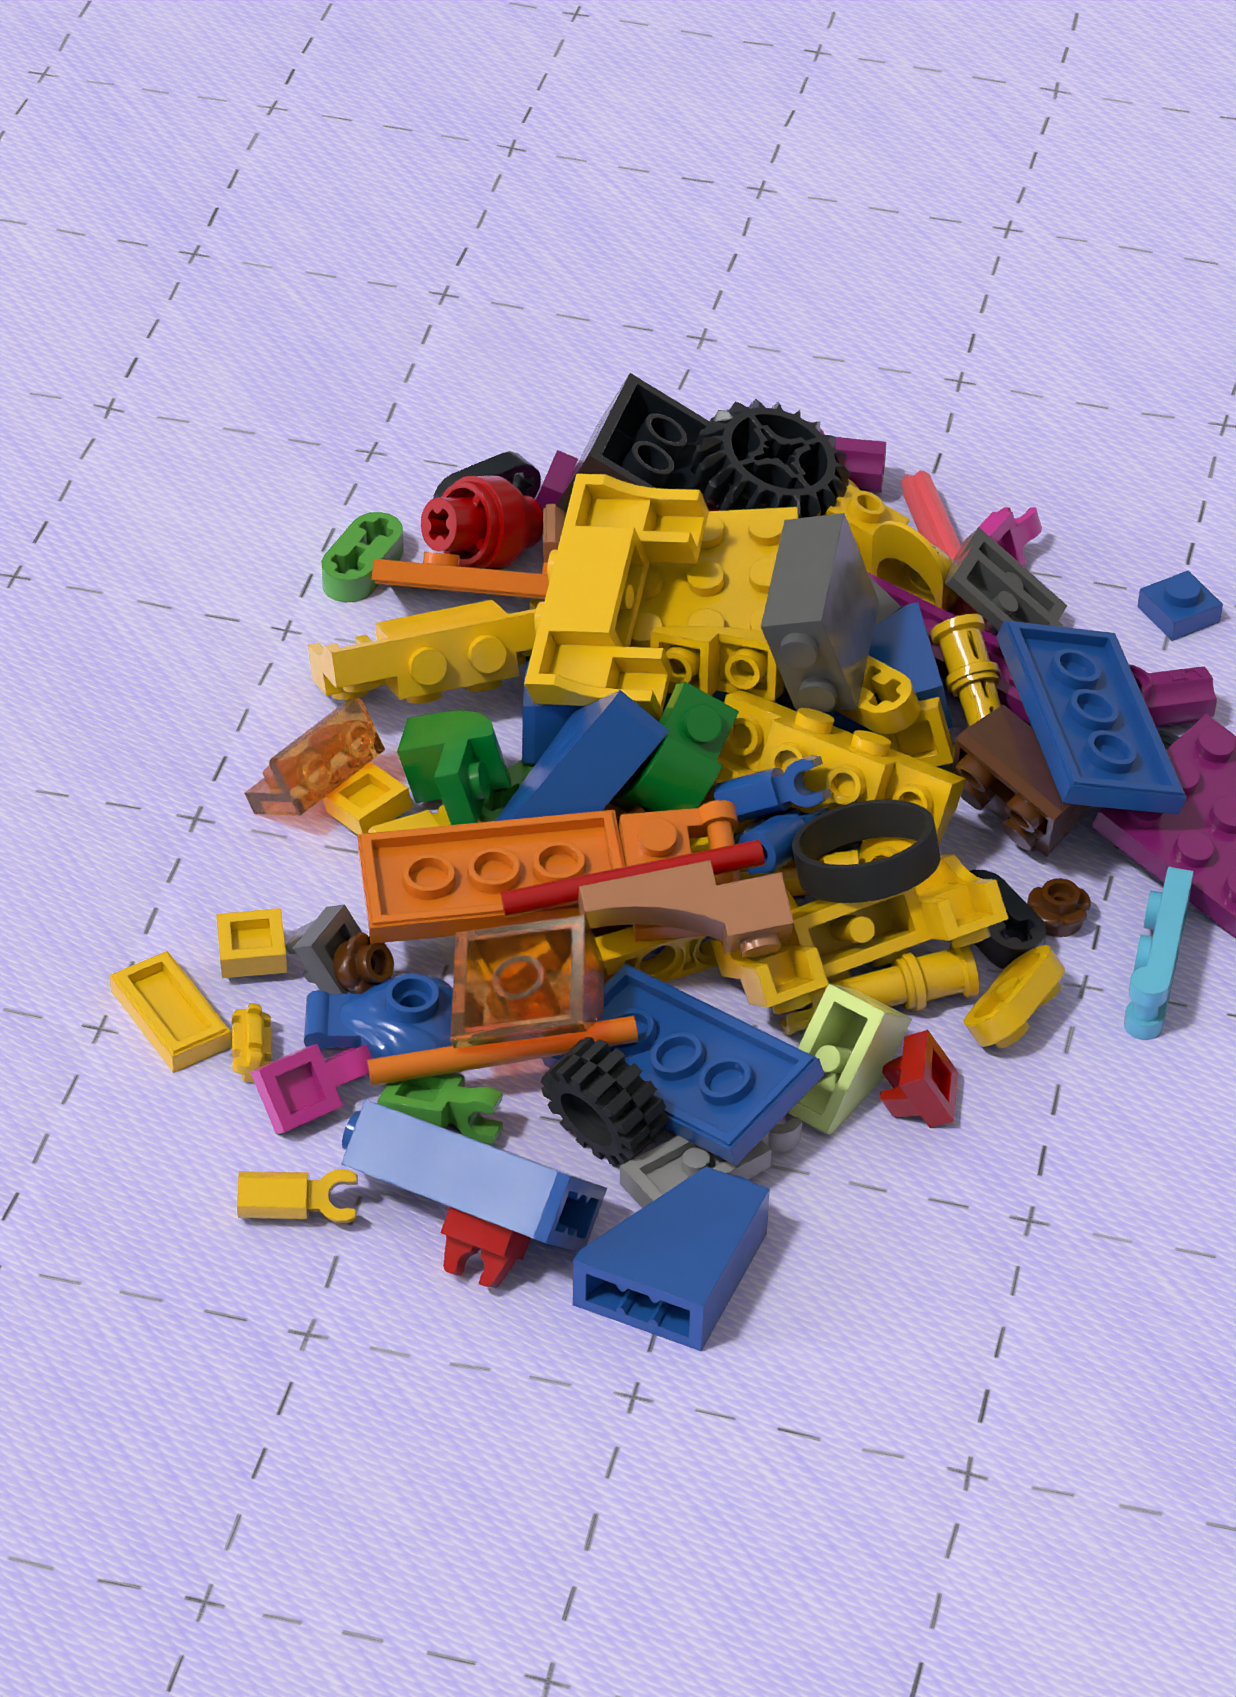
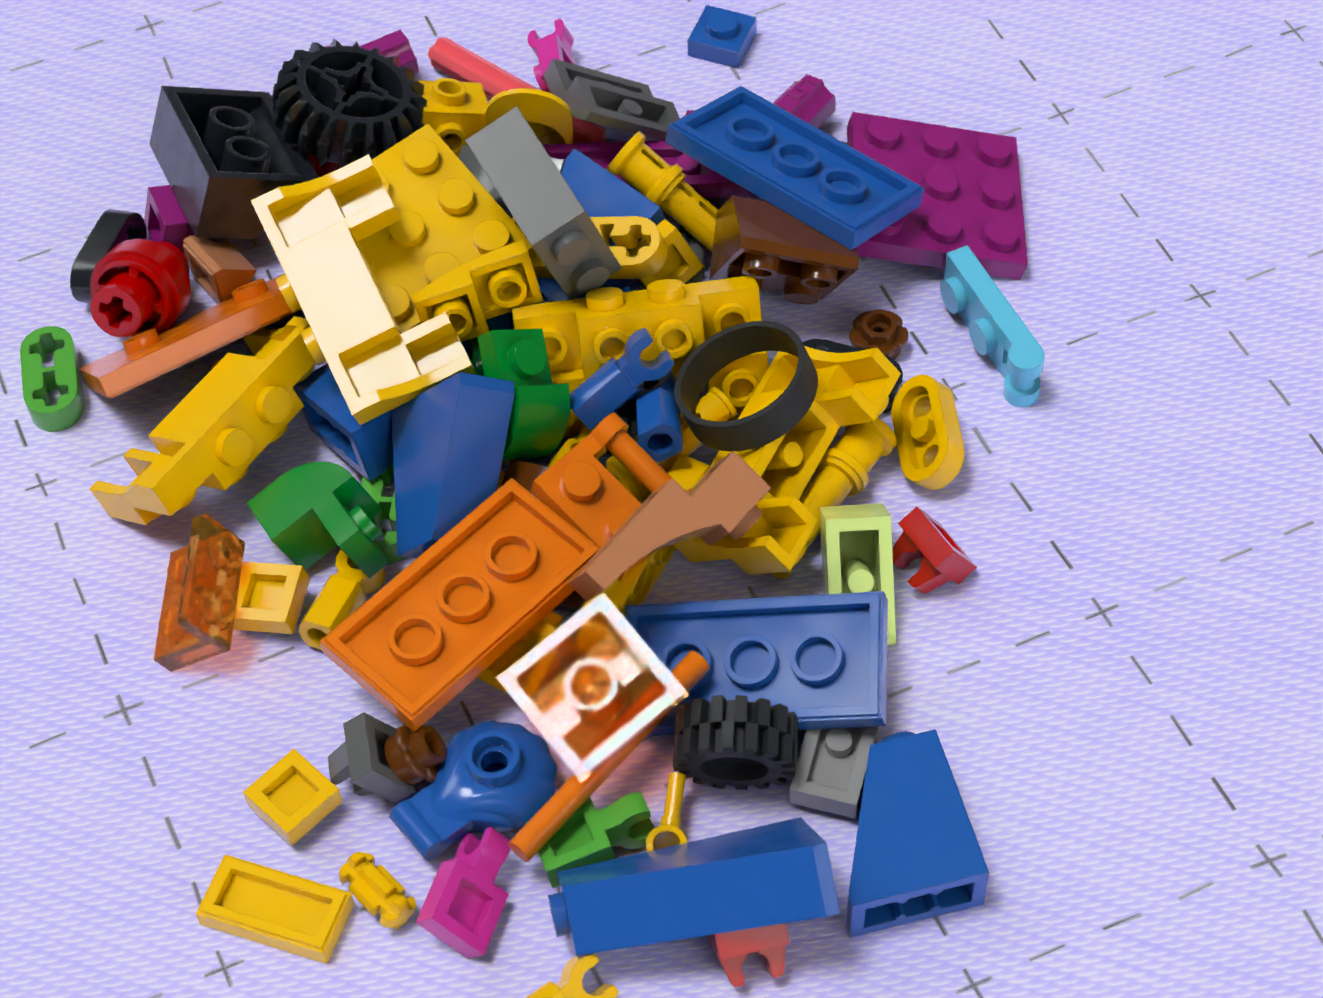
camera: 35 degrees left, 10 degrees up
(511, 1132) = (669, 831): none -> yellow hand
(566, 891) = (596, 533): red piece -> none

